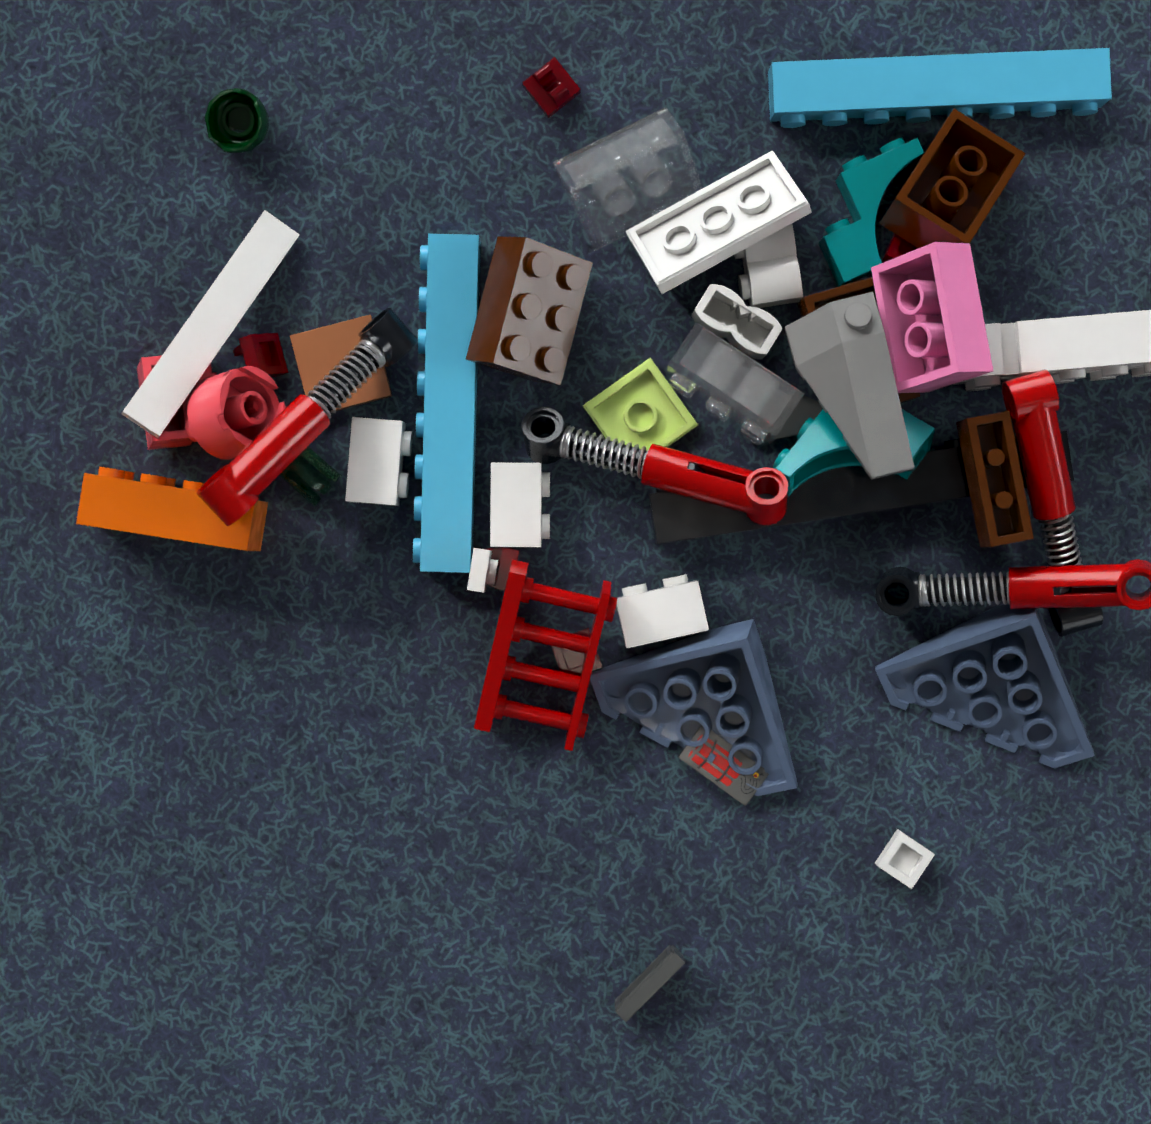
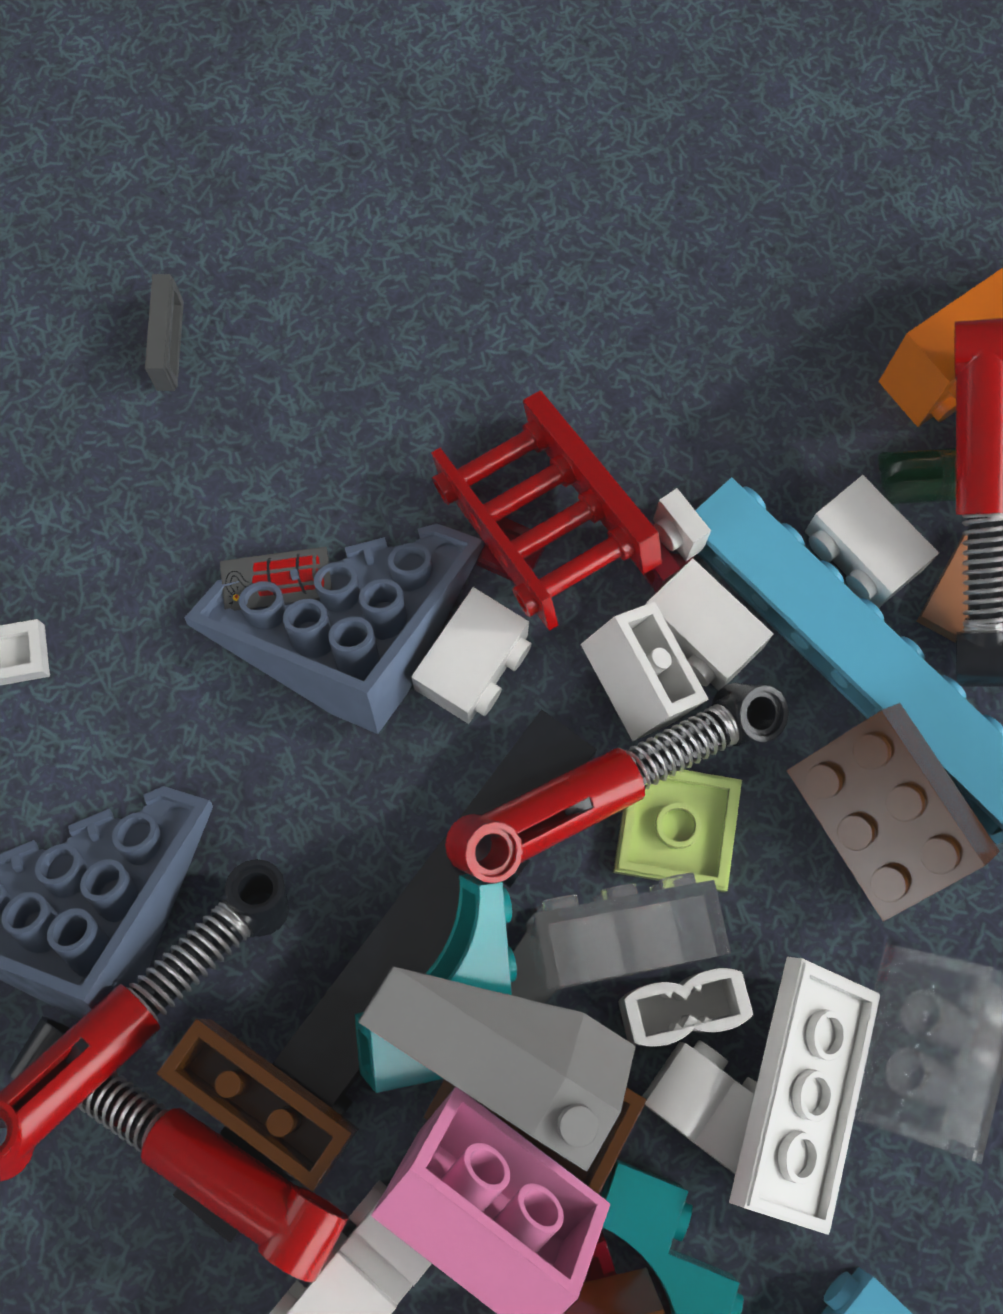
camera: 135 degrees right, 15 degrees down
(579, 511) = (643, 670): none -> white brick

